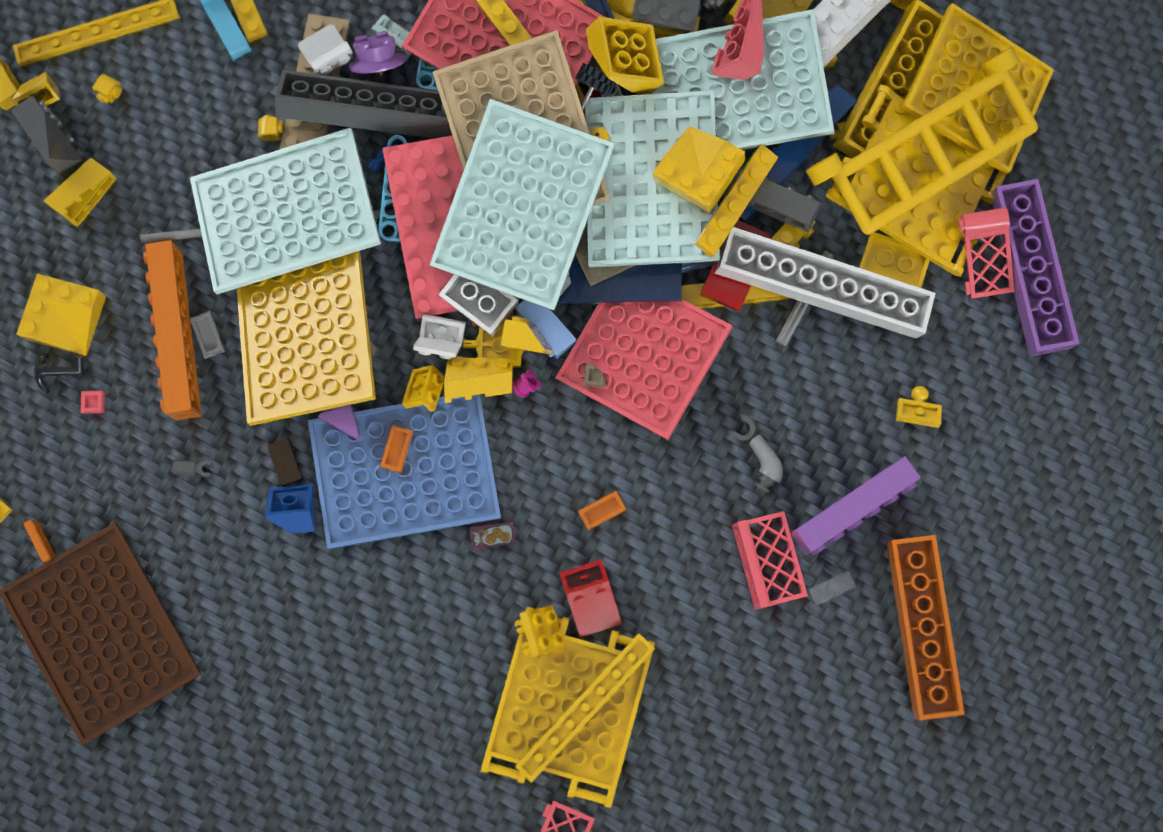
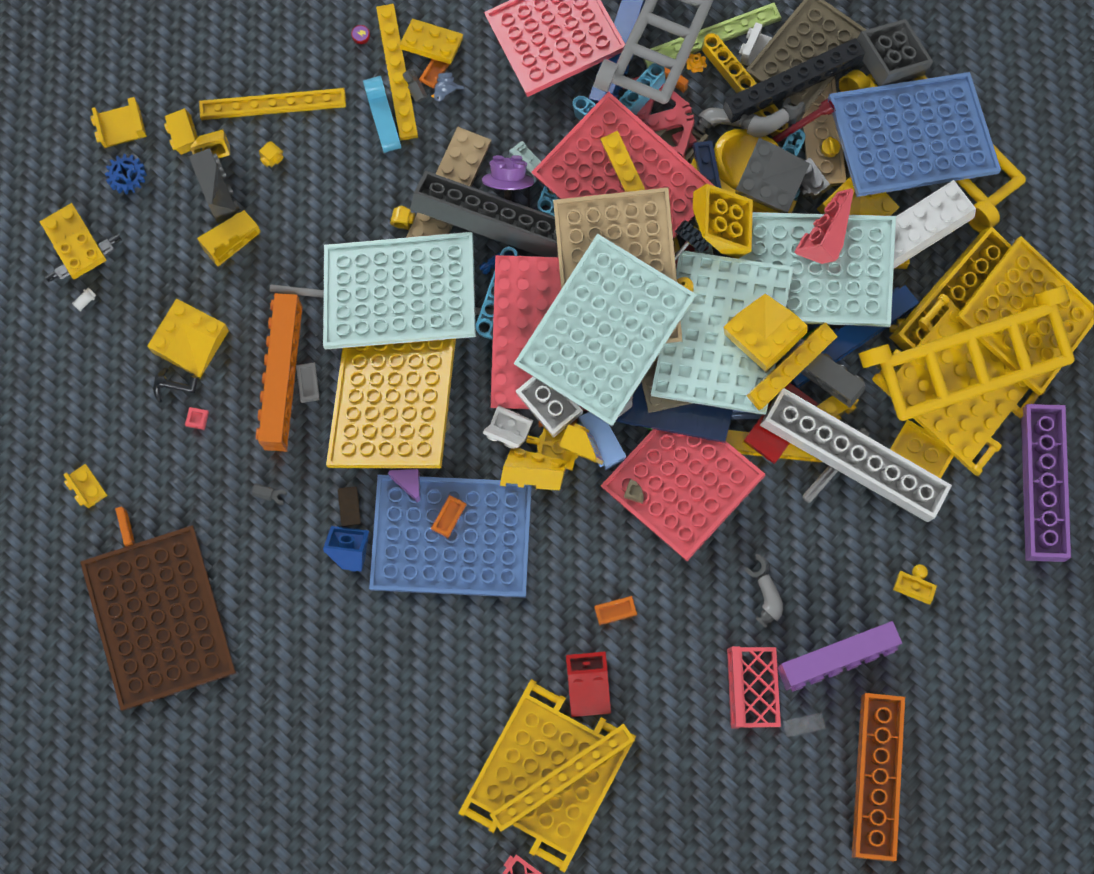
camera: 15 degrees right, 5 degrees down
(325, 50) = (465, 161): white bracket -> none
(424, 388) = (484, 469): yellow bracket -> none
(492, 535) = (515, 610): tile -> none
(526, 384) = (573, 485): dark pink brick -> none
(541, 631) = (539, 702): yellow plate -> none
(980, 225) = (1004, 435): coral piece -> none

